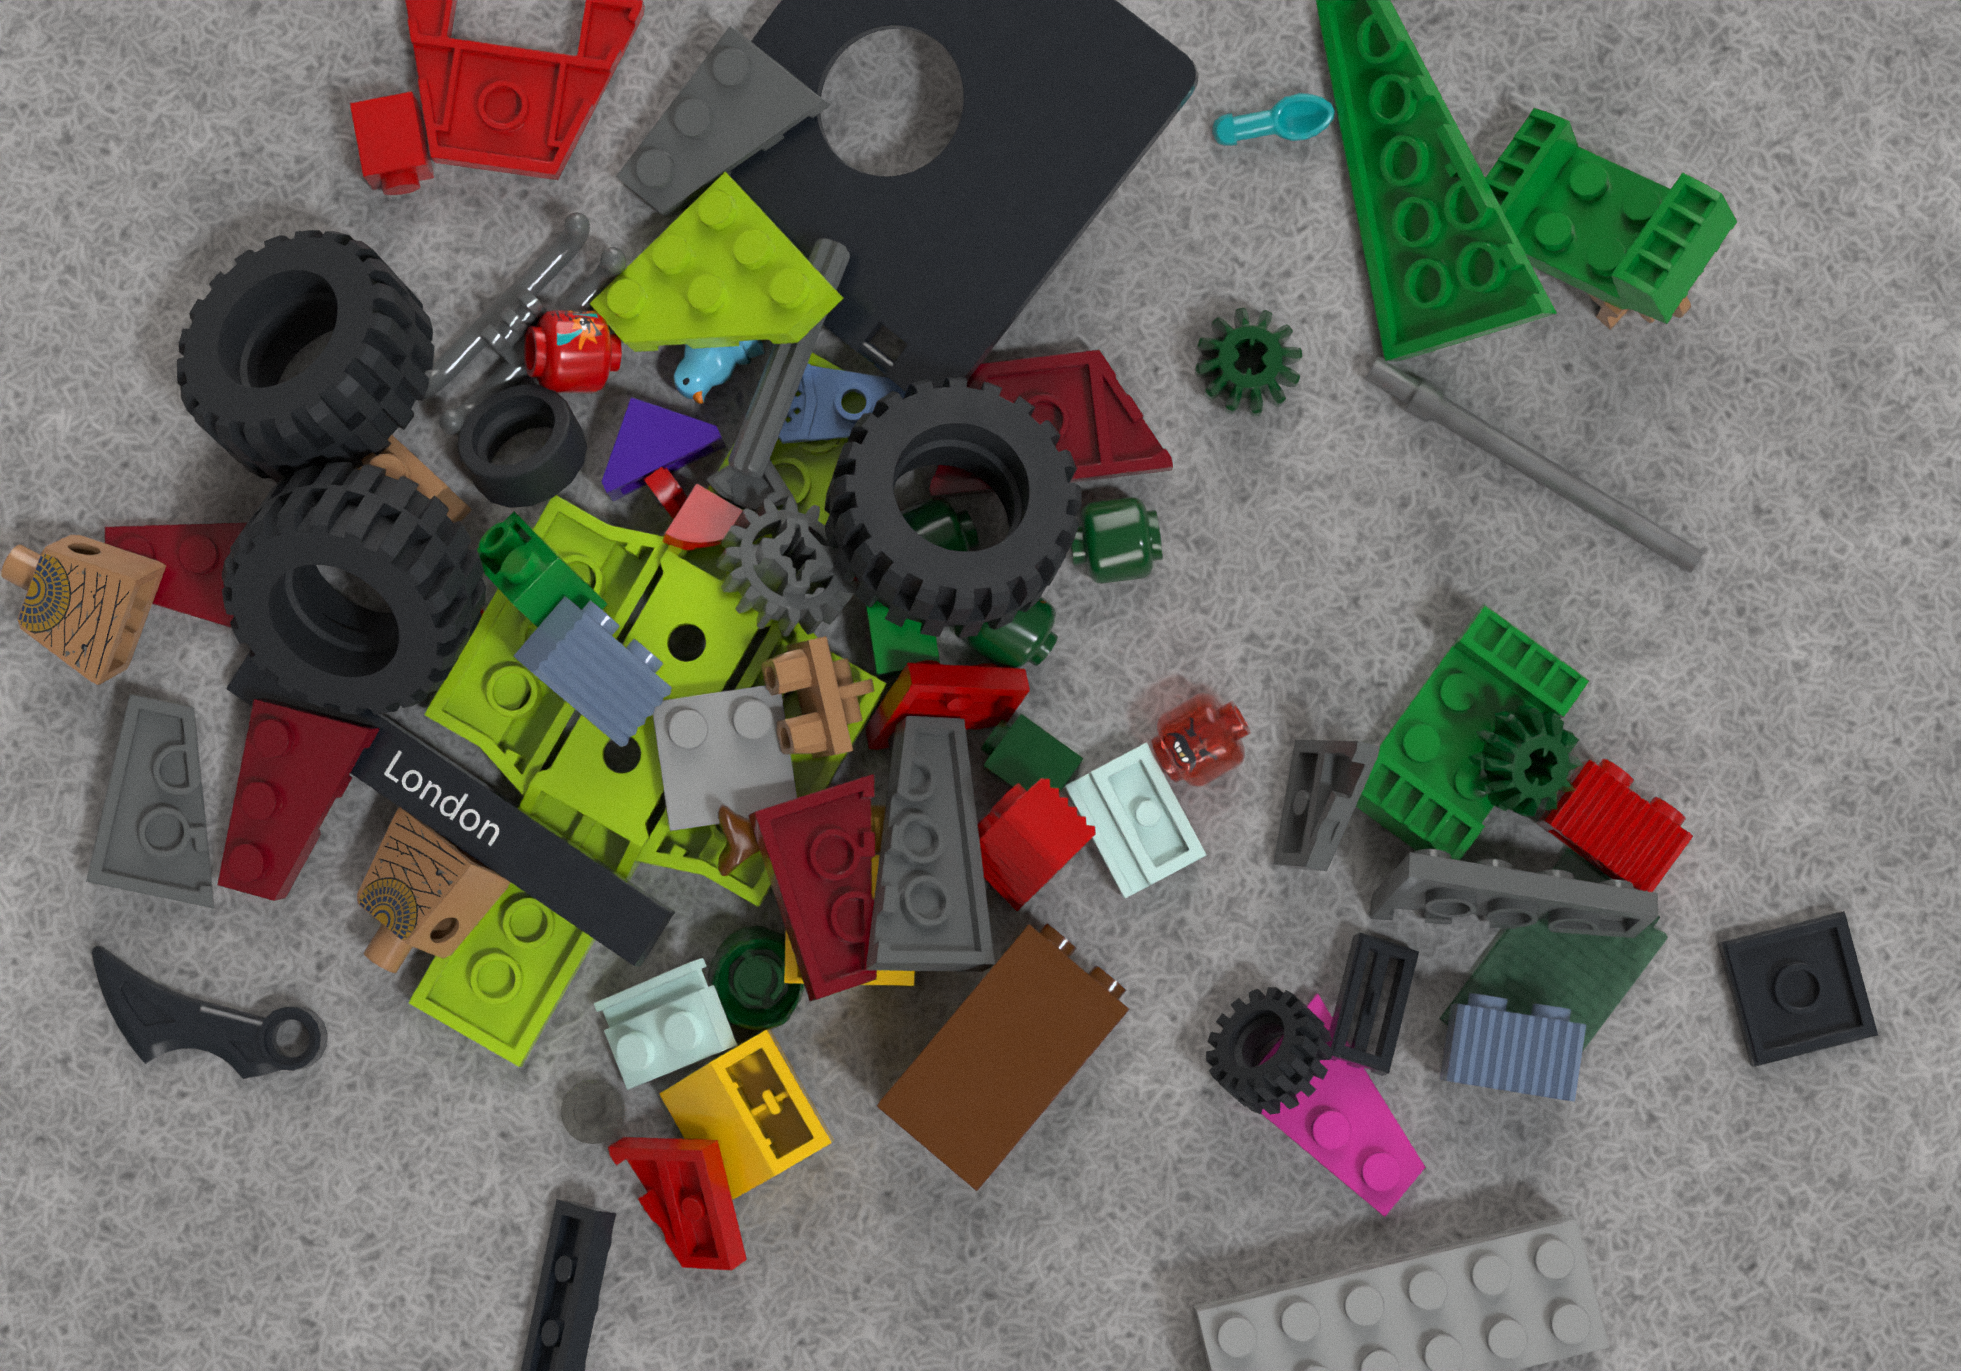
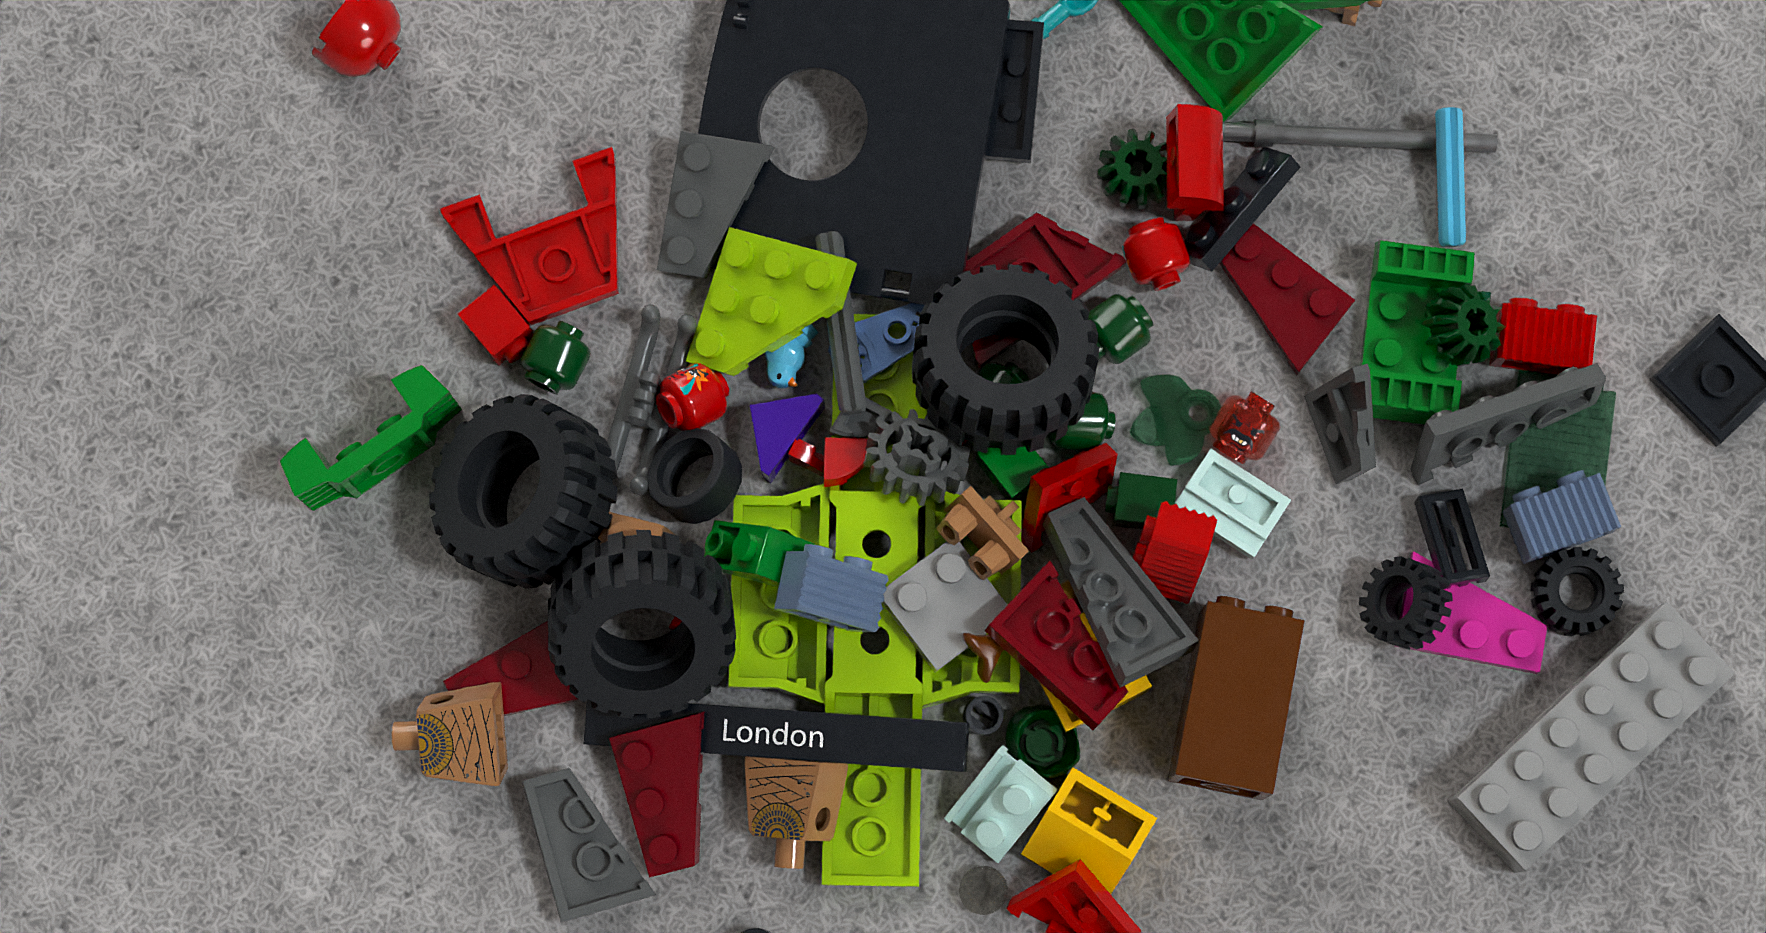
camera: 25 degrees left, 5 degrees down
(84, 211) = (368, 464): none -> green plate
(439, 216) = (555, 357): none -> dark green head
(715, 902) = (986, 707): none -> black hinge
(1118, 682) = (1168, 418): none -> clear green plate
(1155, 192) = (1016, 94): none -> black plate
(1212, 476) = (1156, 253): none -> red head
(1317, 391) = (1194, 161): none -> red brick
(1341, 474) = (1243, 203): none -> black plate
(1341, 603) = (1286, 294): none -> dark red wing
(1521, 1155) = (1602, 578): none -> black tyre
(1617, 574) = (1450, 177): none -> medium azure axle

